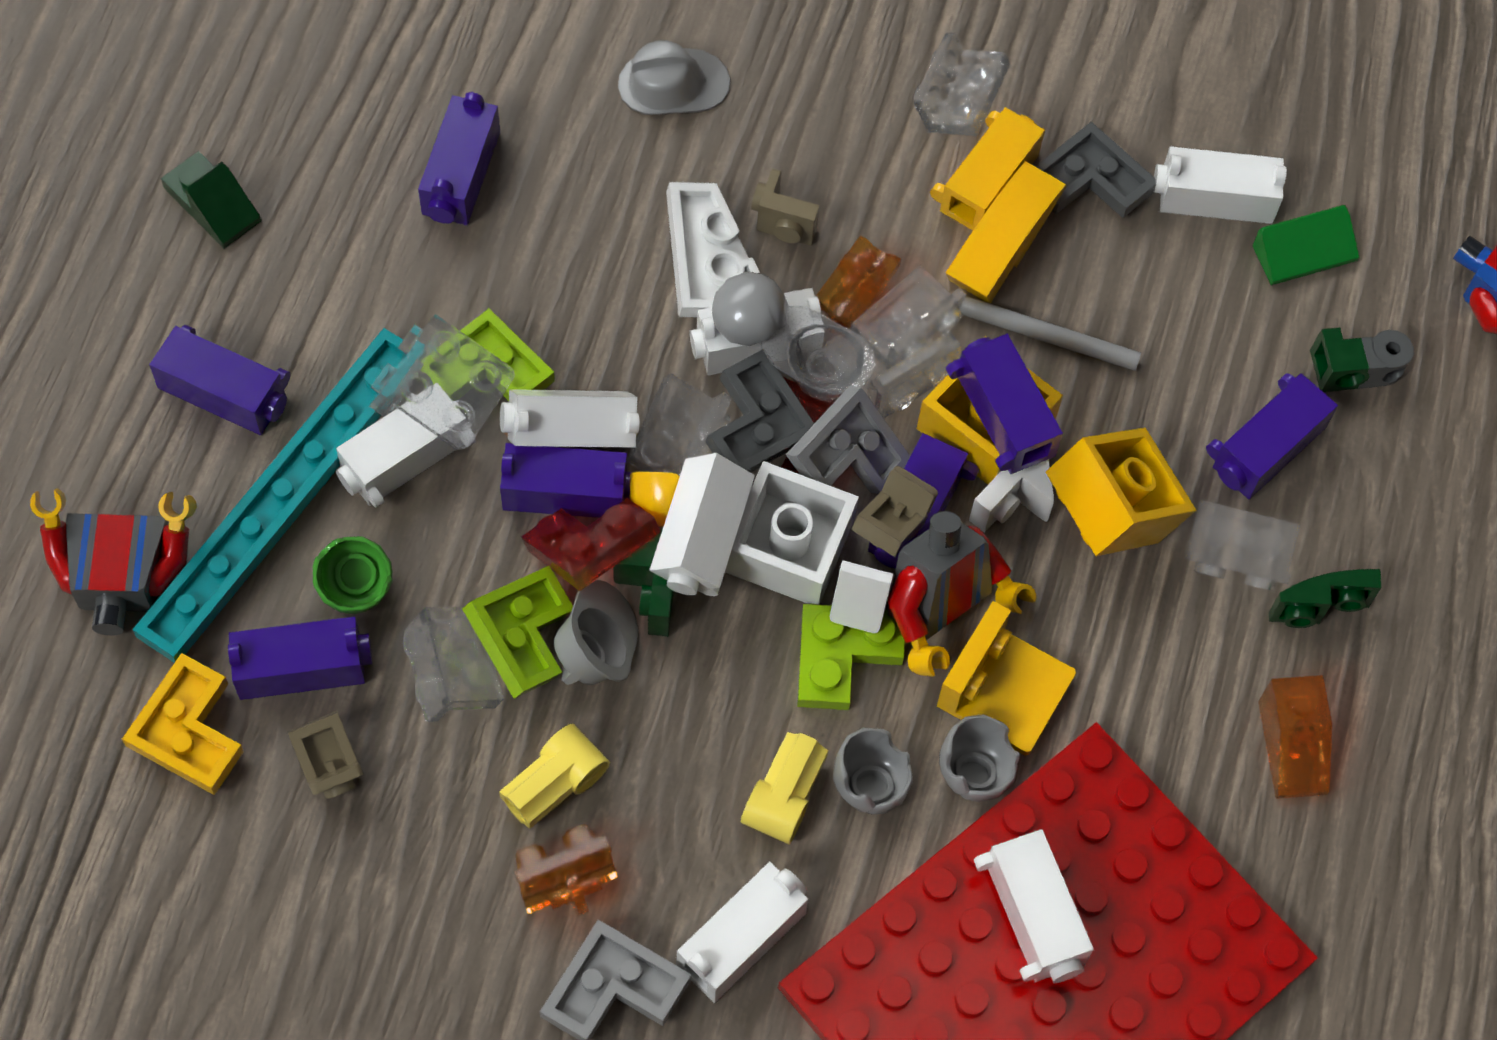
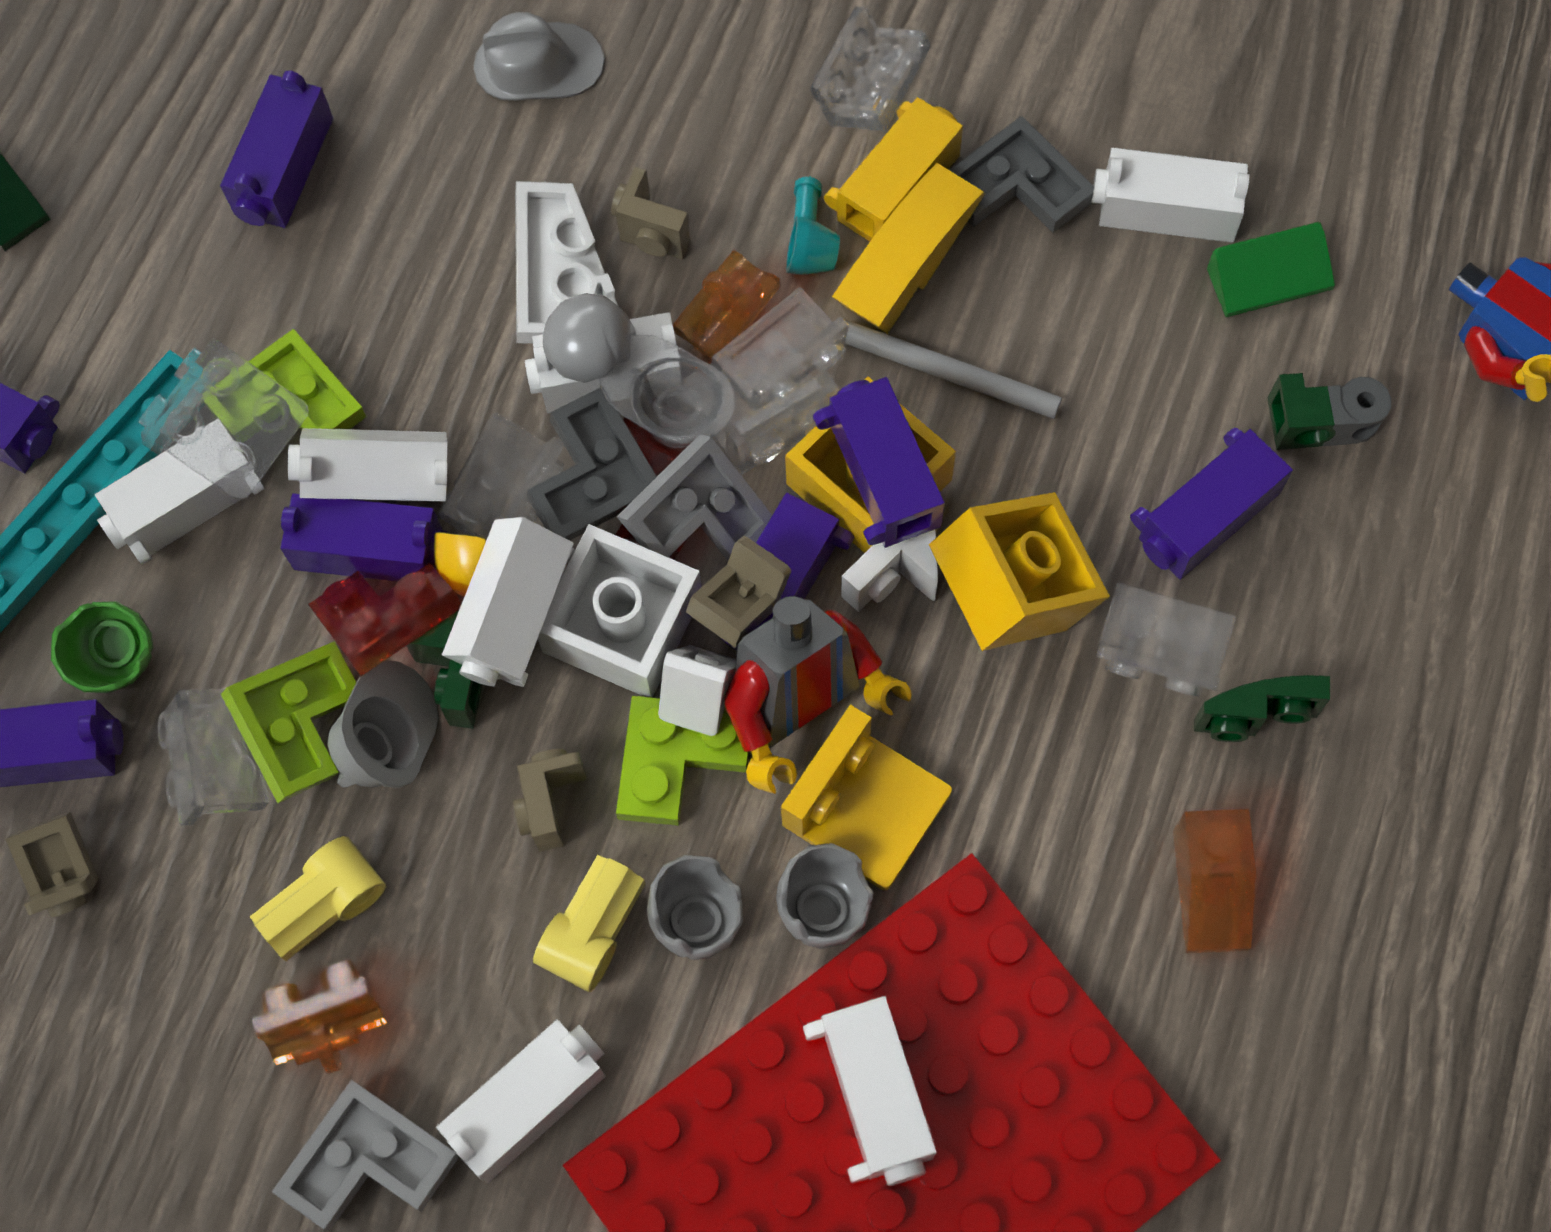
camera: 10 degrees right, 5 degrees up
(732, 696) = (537, 809): none -> dark tan bracket
(920, 230) = (811, 244): none -> teal bar

